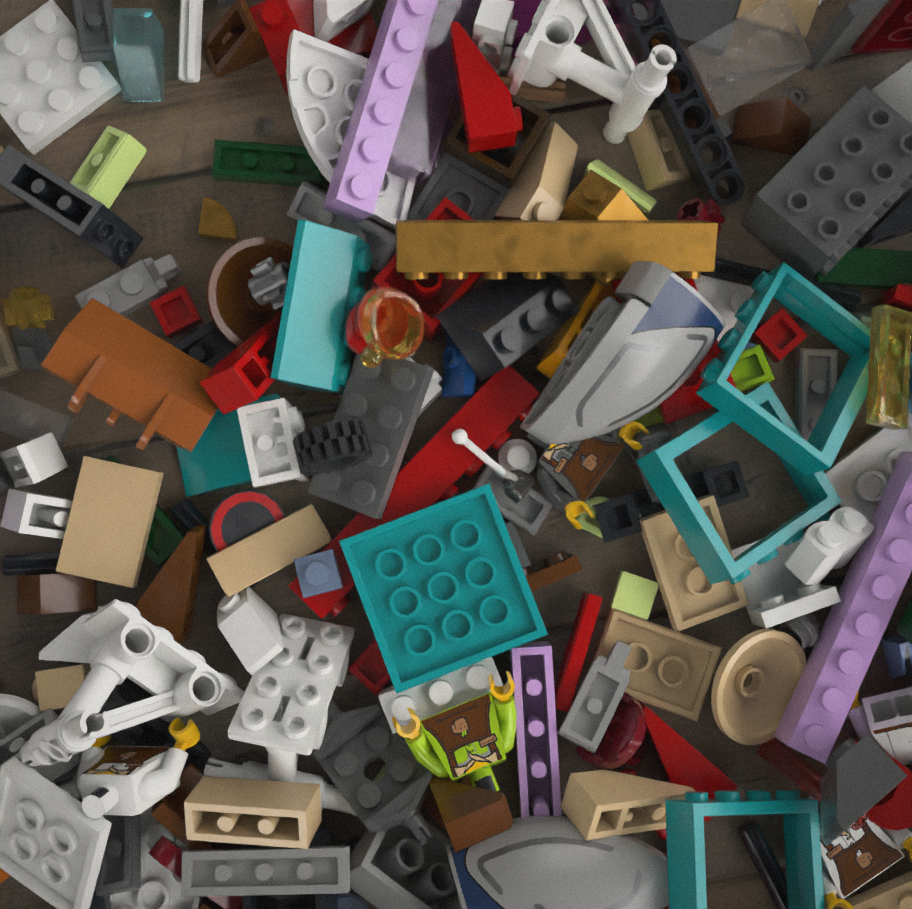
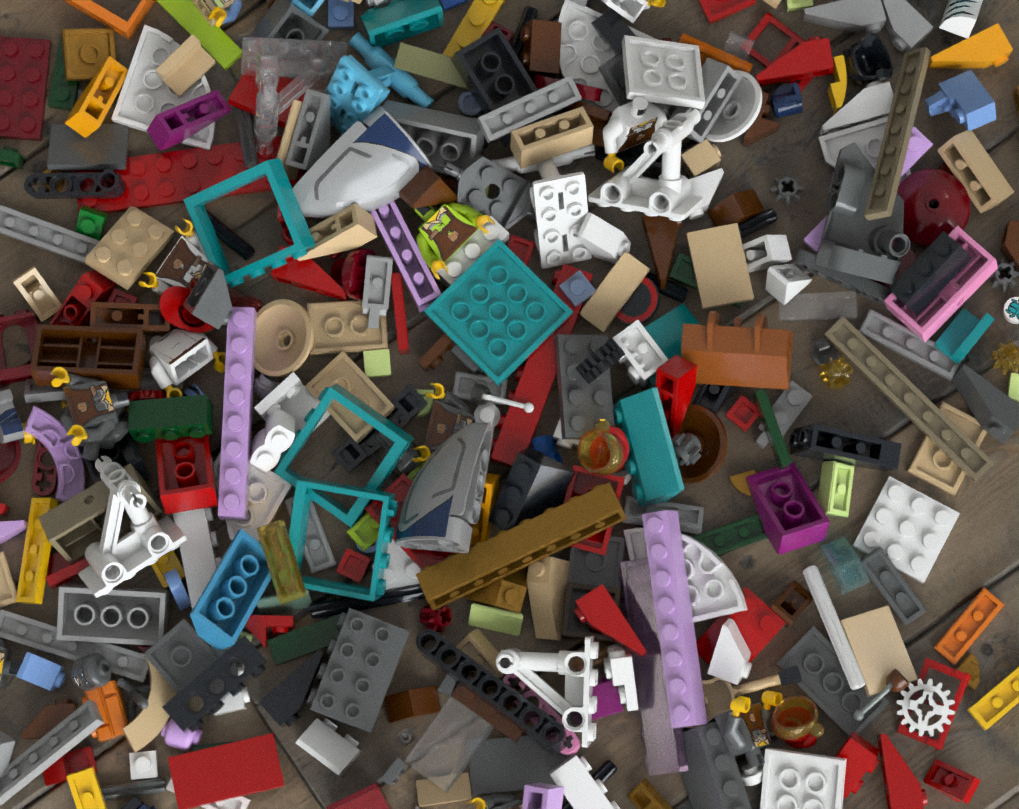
camera: 160 degrees right, 5 degrees down
(145, 264) = (772, 429): none -> dark green tile
(177, 161) = (787, 509): none -> magenta slope

